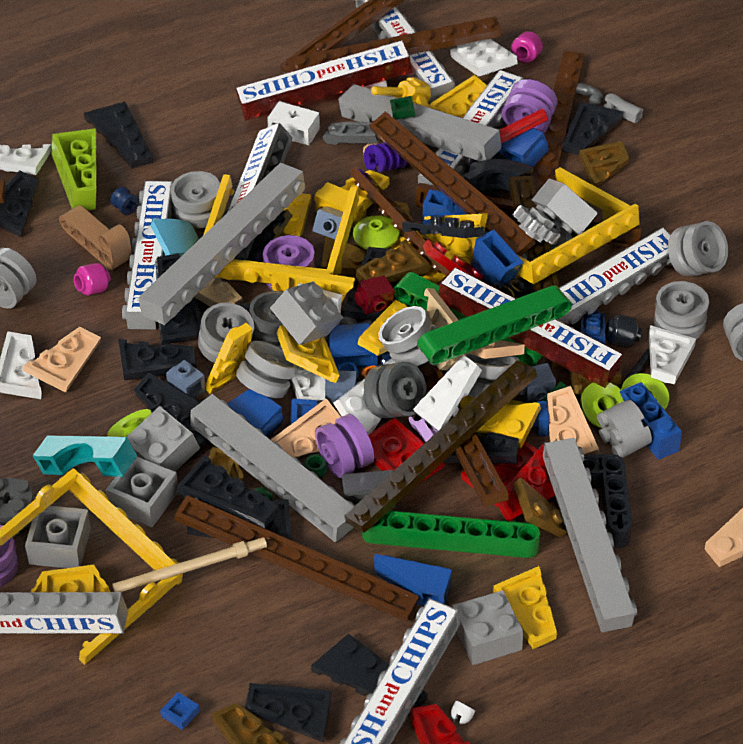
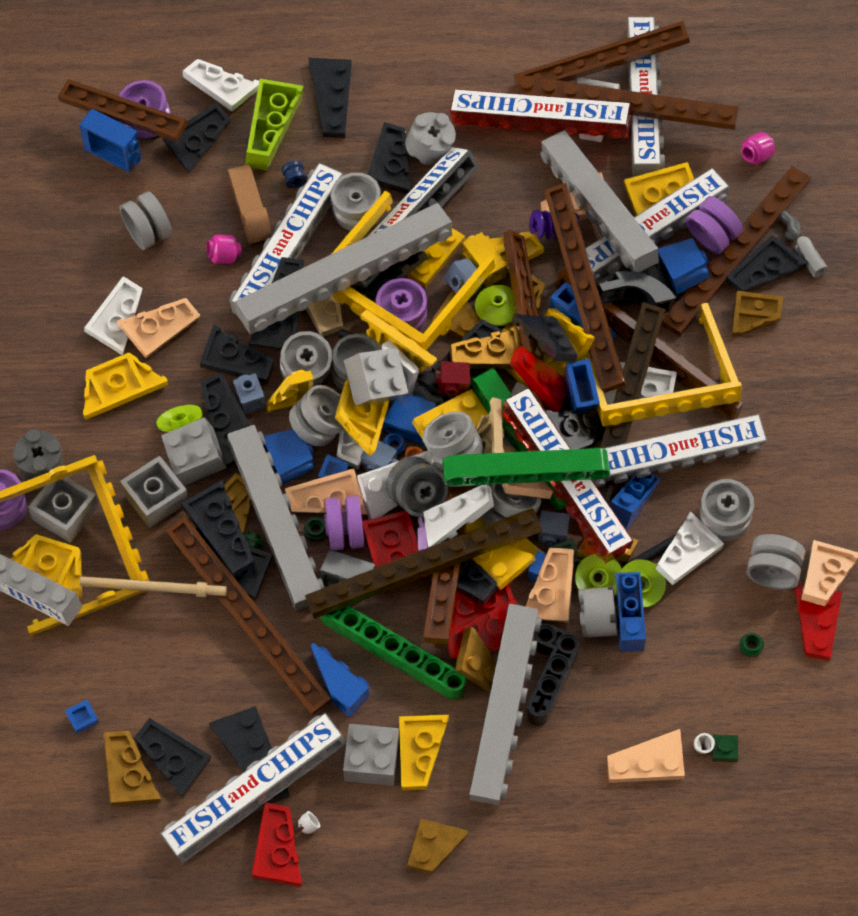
camera: 25 degrees right, 15 degrees up
(53, 416) = (118, 383): none -> yellow wing
(62, 453) = (107, 425): teal arch -> none
(174, 235) = (316, 237): medium azure slope -> none
(205, 157) = (390, 159): none -> black wing
(235, 130) = (430, 137): none -> light grey brick
(298, 122) = (491, 148): white brick -> none
(350, 133) = (534, 181): dark grey hinge -> none
(402, 107) = (586, 183): dark green plate -> none
(412, 87) = (610, 160): yellow piece -> none
(483, 56) = (708, 147): white plate -> none
(523, 125) = (687, 246): red axle -> none
(536, 224) = (632, 369): light grey gear -> none
(564, 207) = (669, 360): light grey brick -> none
(593, 682) = (433, 845): none -> pearl gold wing
(623, 331) = (662, 507): black head -> none
(698, 249) = (776, 452): light grey wheel -> none

